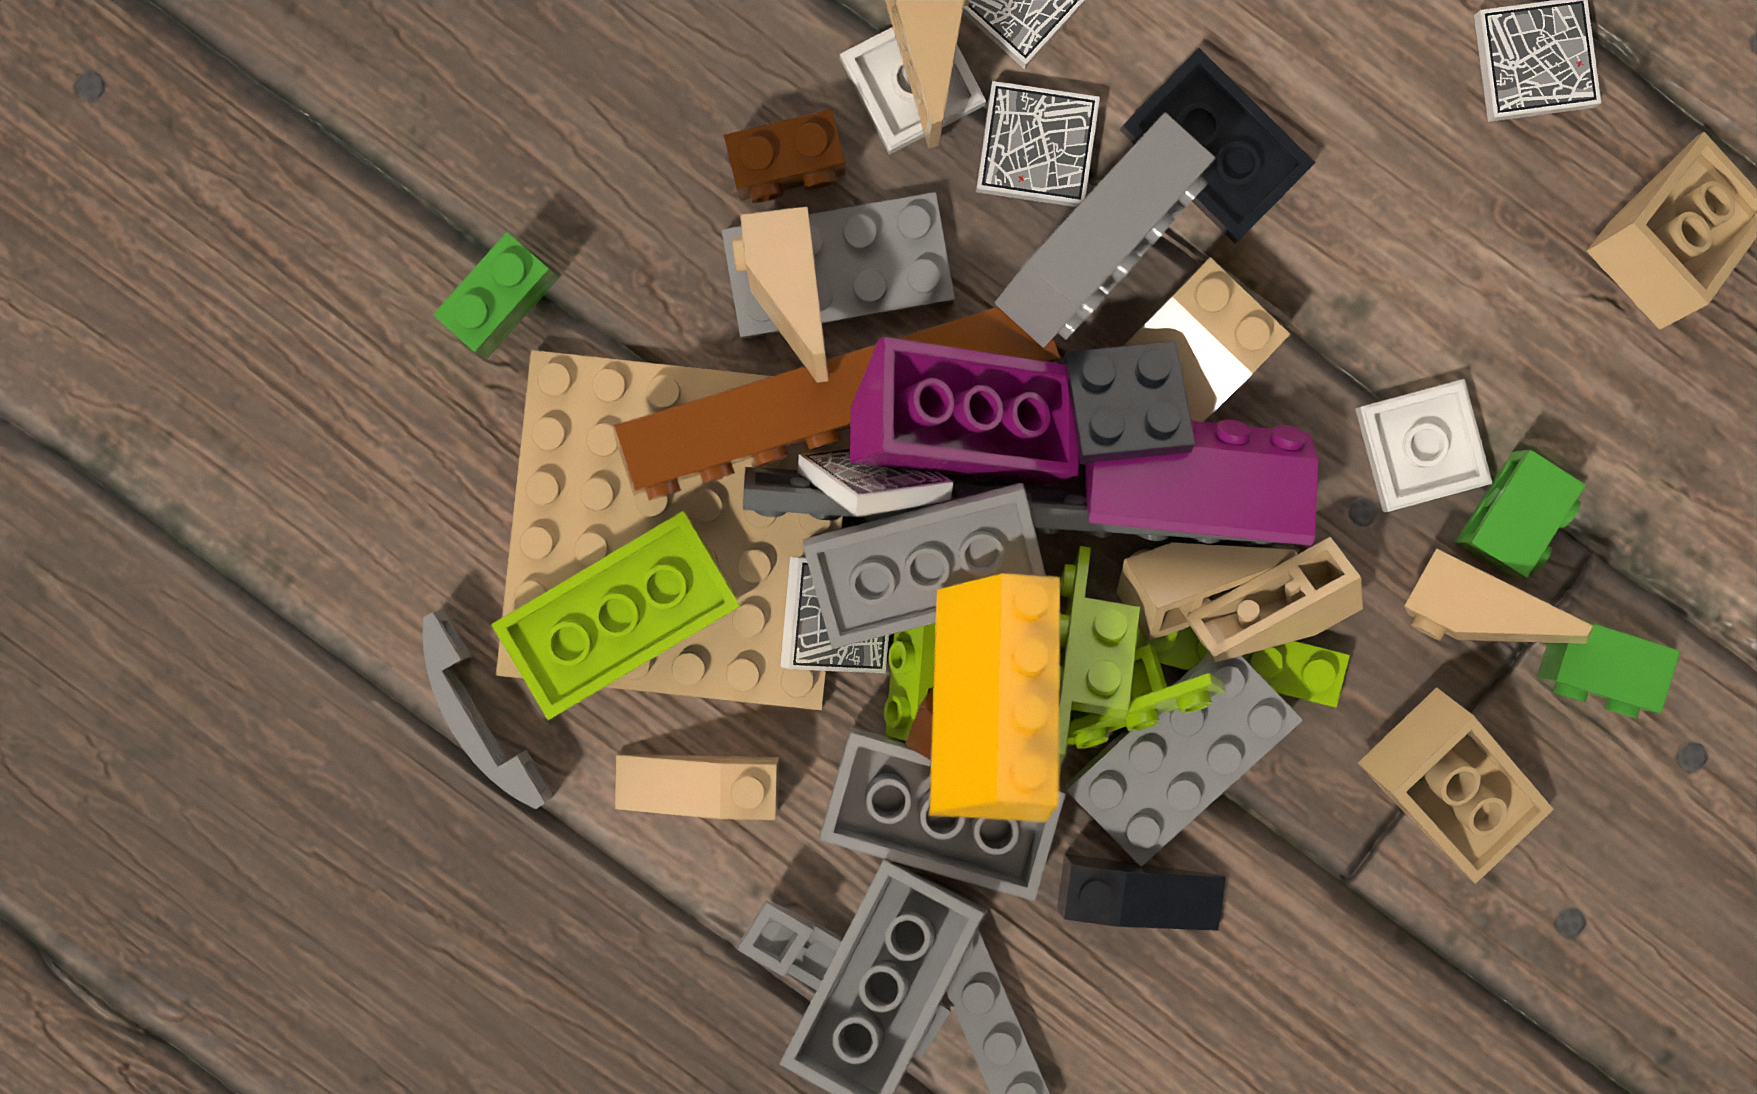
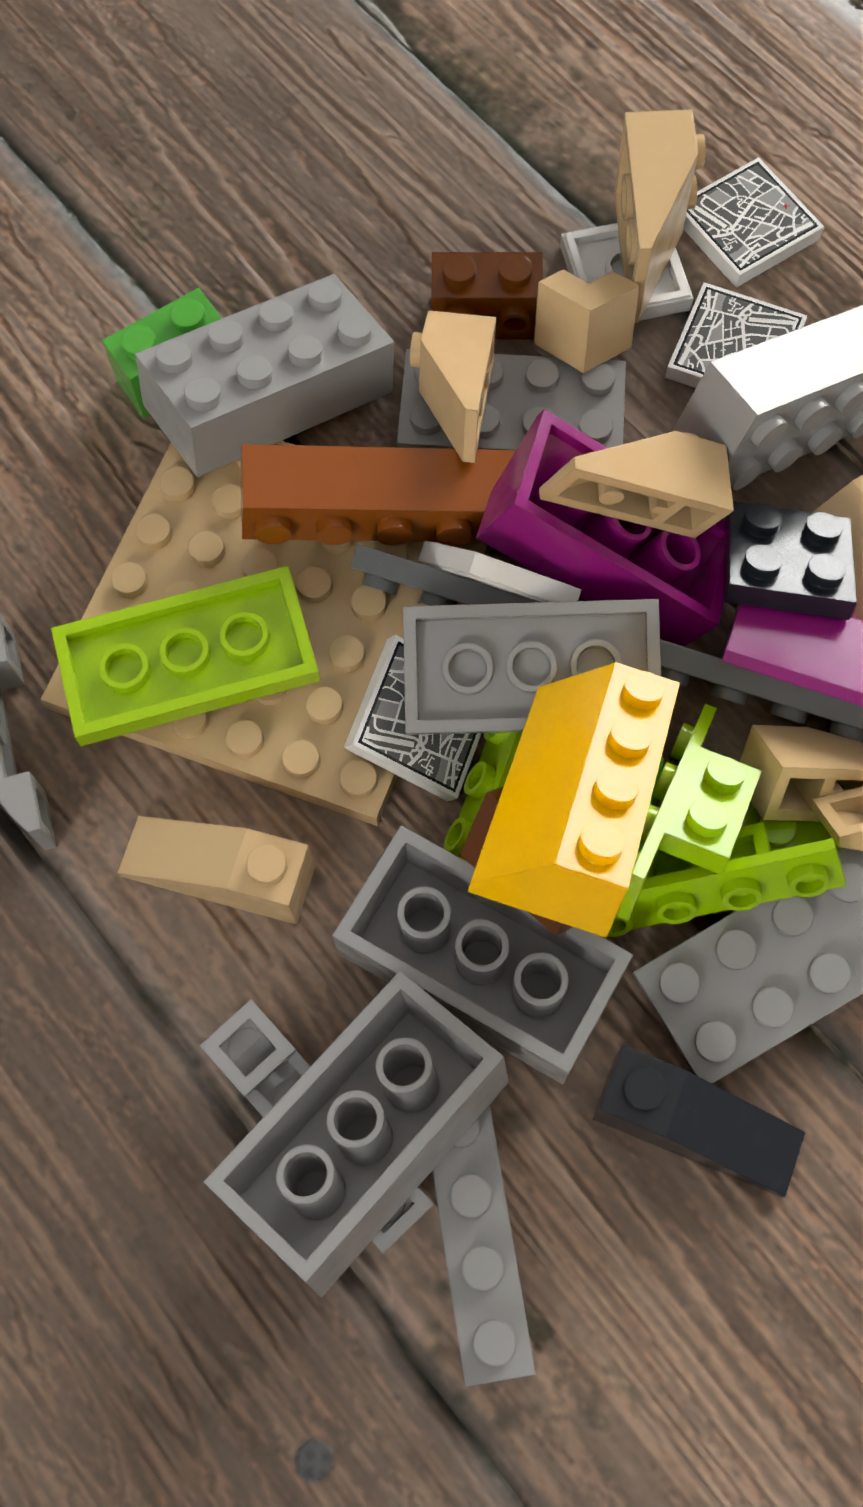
camera: 20 degrees right, 20 degrees down
(600, 306) = (265, 373): none -> light grey brick
(892, 177) = (585, 320): none -> tan piece
(996, 374) = (656, 482): none -> tan slope

